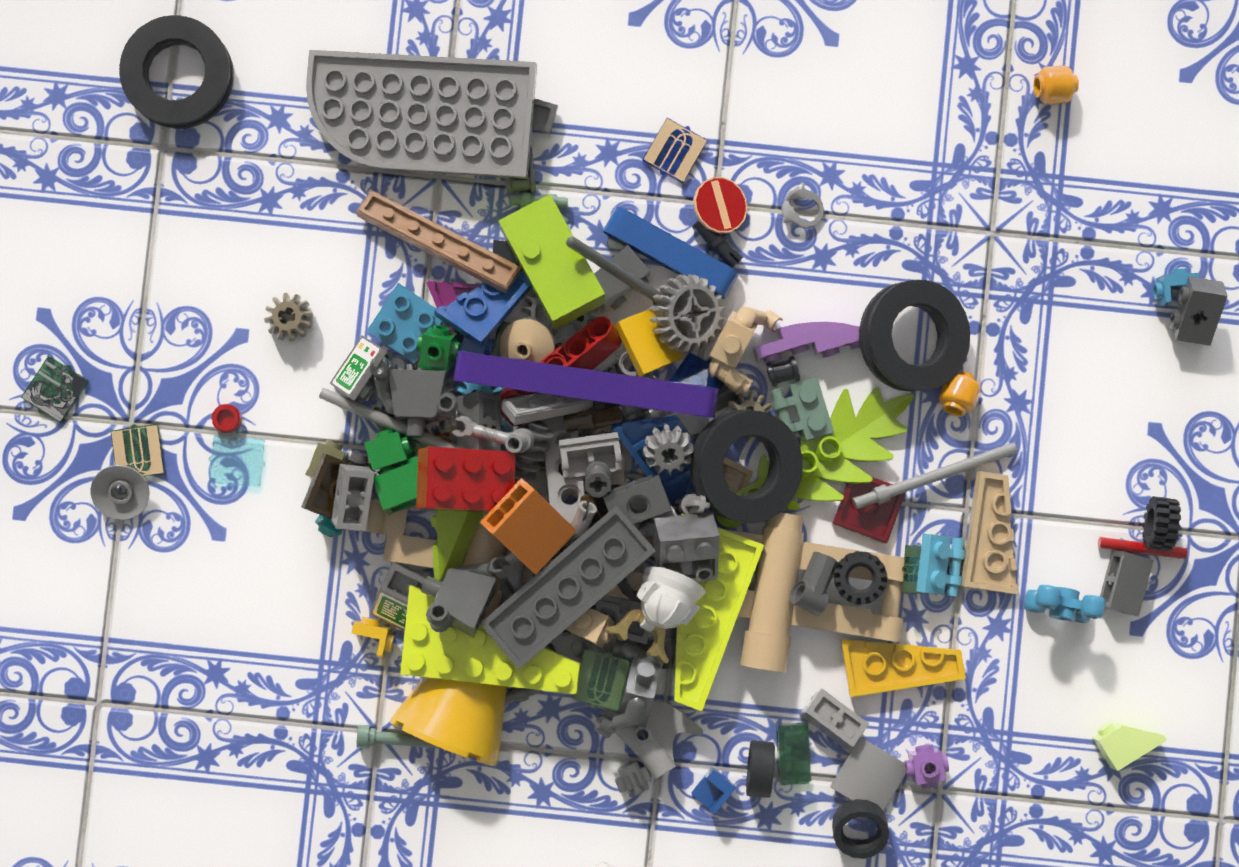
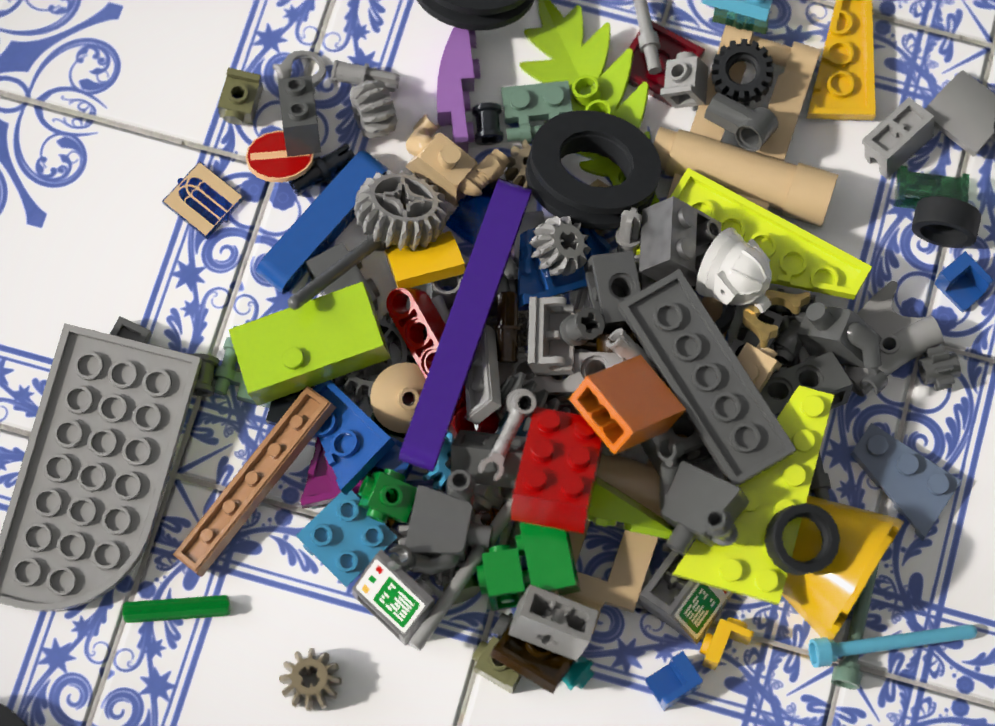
camera: 80 degrees left, 15 degrees down
(329, 202) = (176, 608): none -> green axle
(336, 600) = (674, 681): none -> blue panel
(376, 716) = (825, 651): none -> medium azure piece
(440, 705) = (829, 535): none -> black tyre
(536, 765) = (908, 478): none -> sand blue wing
(602, 679) = (819, 369): clear green piece -> none
(756, 213) = (299, 116): none -> dark grey brick
(775, 273) = (373, 109): none -> light grey gear
(776, 169) = (242, 84): none -> olive brick
(807, 261) = (356, 74): none -> light grey axle
(847, 531) = (685, 81): none -> light grey brick
(919, 758) = (965, 48): medium lavender brick -> none

